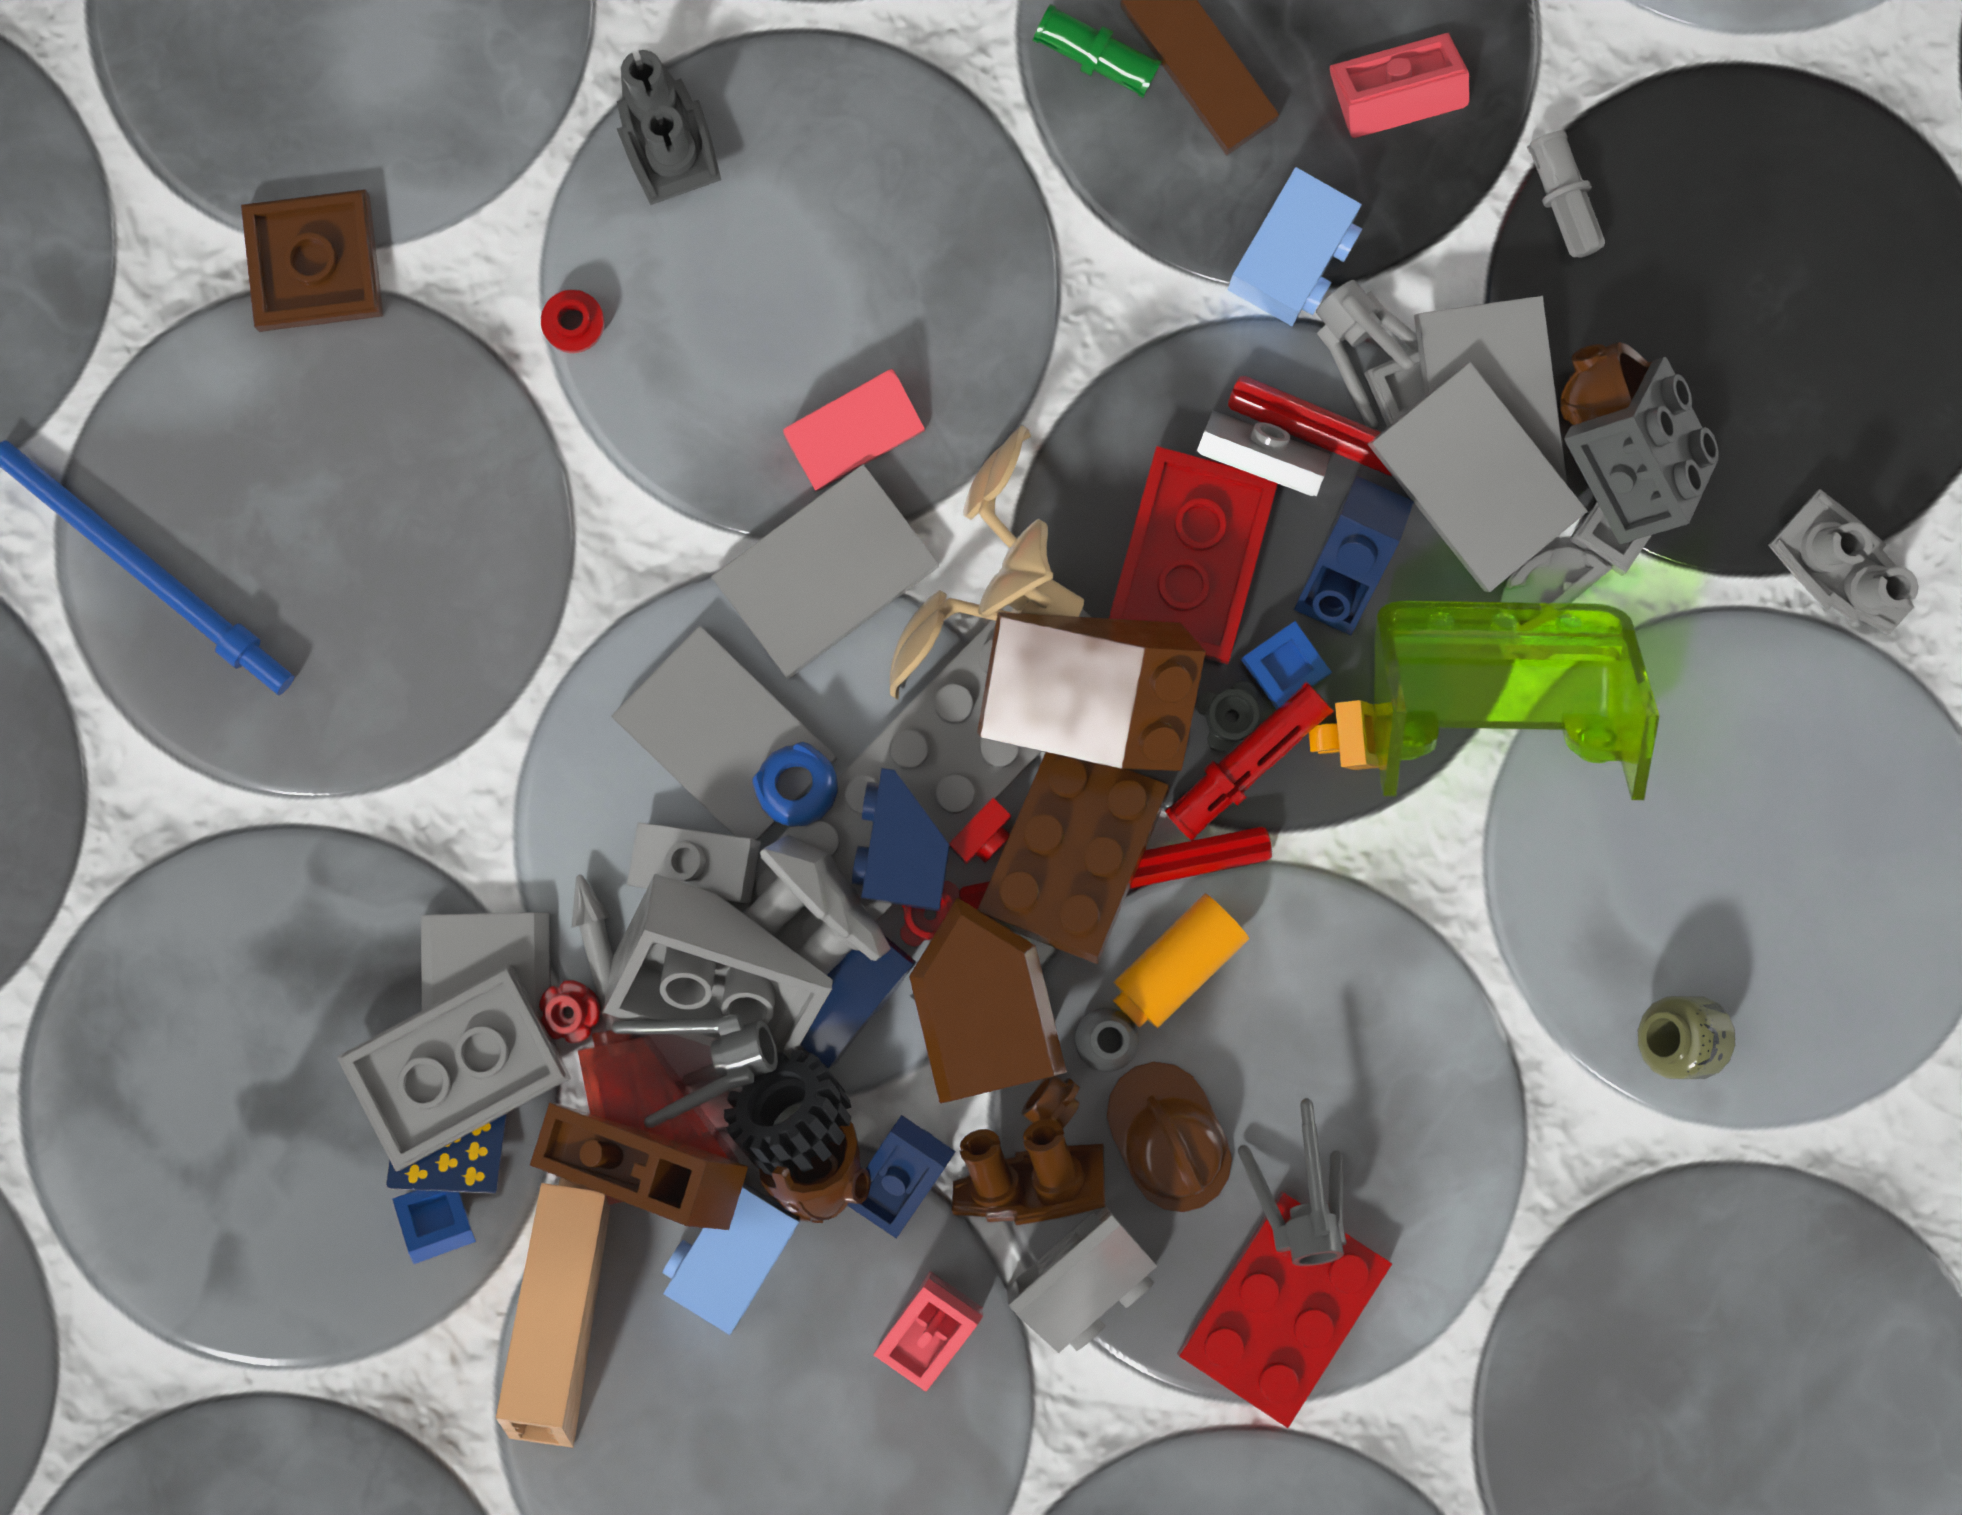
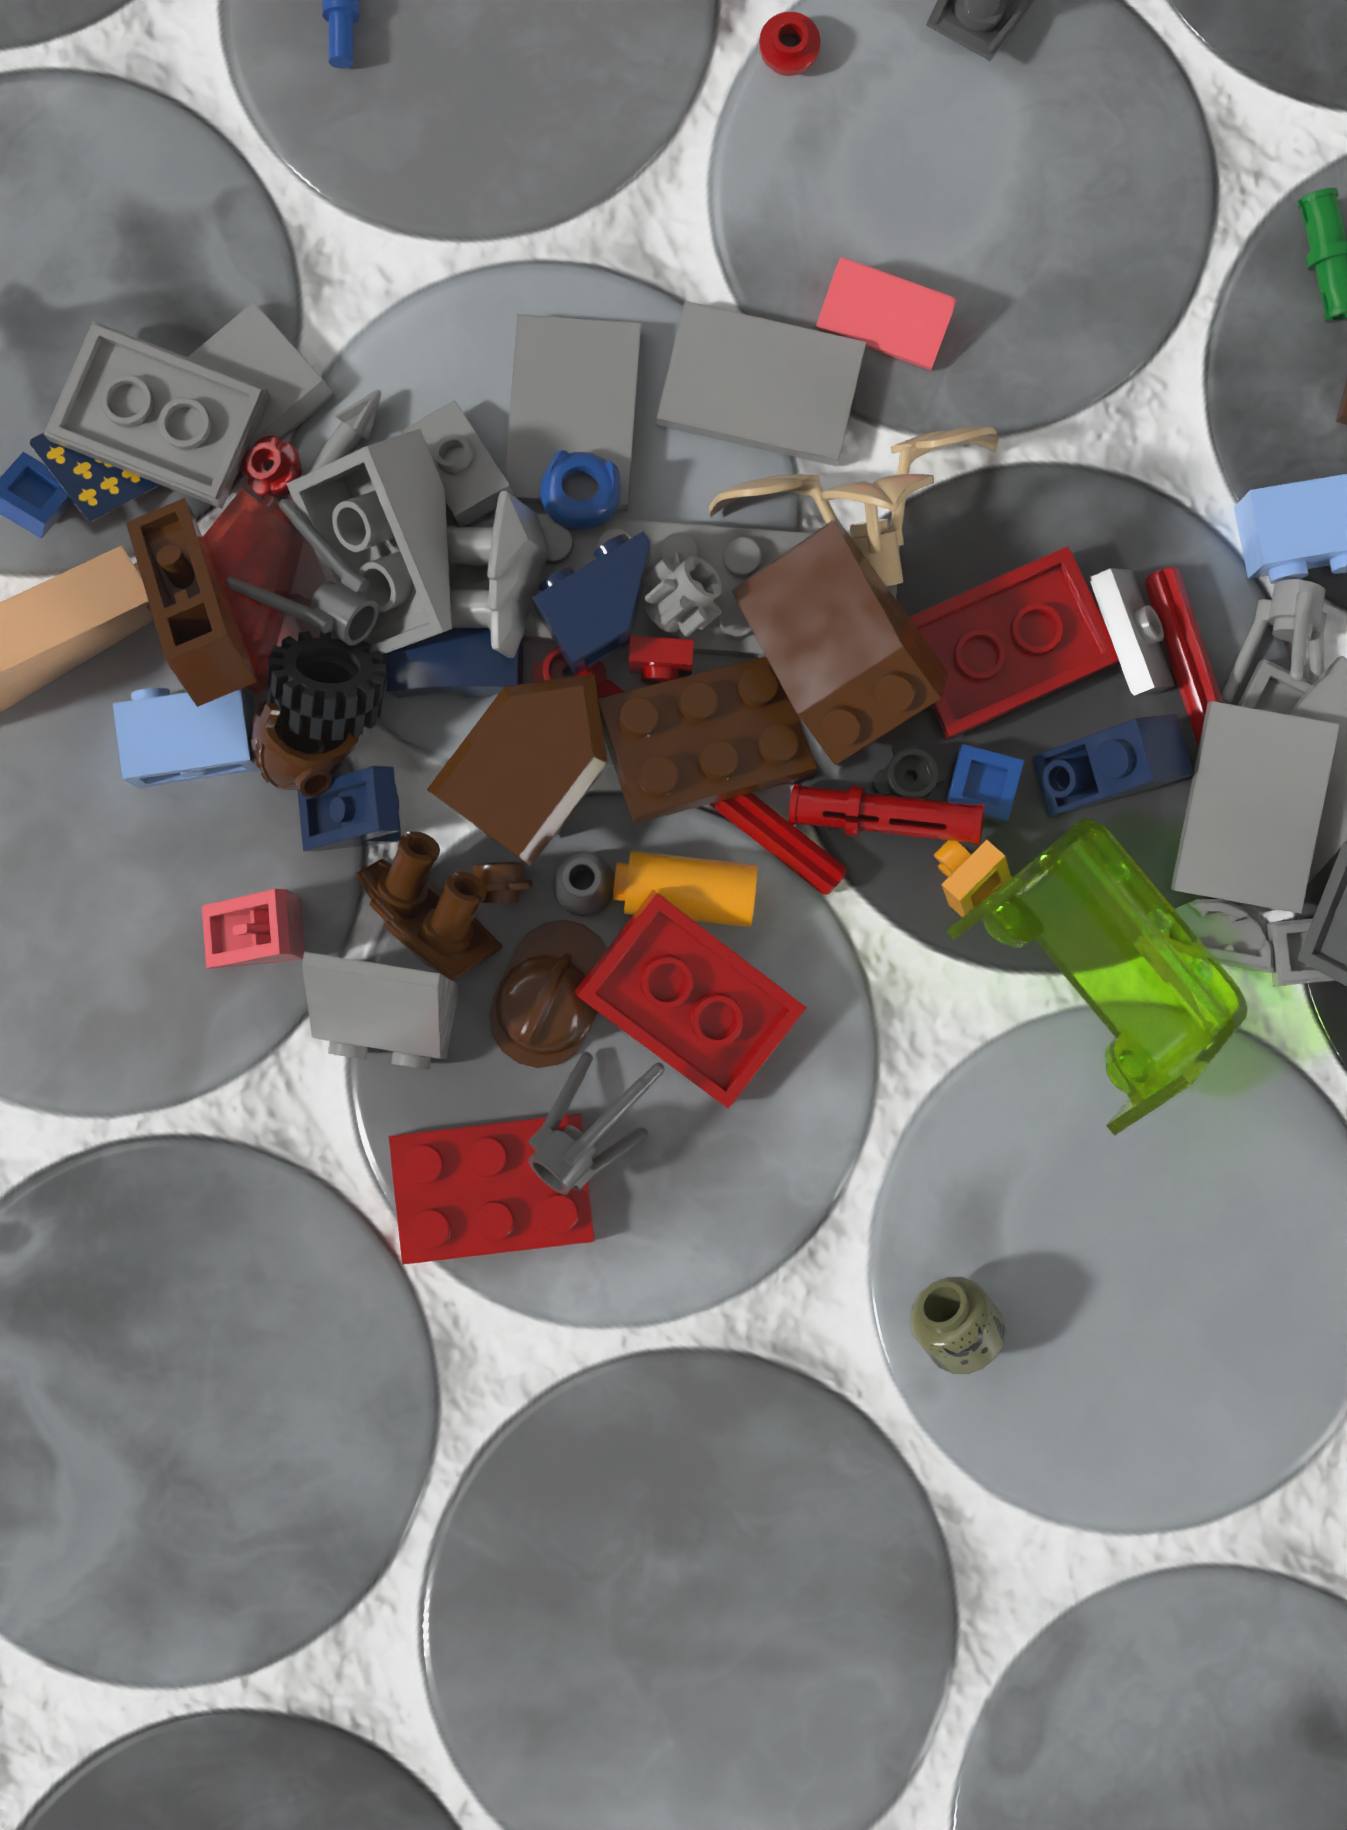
camera: 50 degrees right, 0 degrees up
(952, 777) = (682, 594): none -> light grey gear
(1268, 1033) = (690, 999): none -> red plate

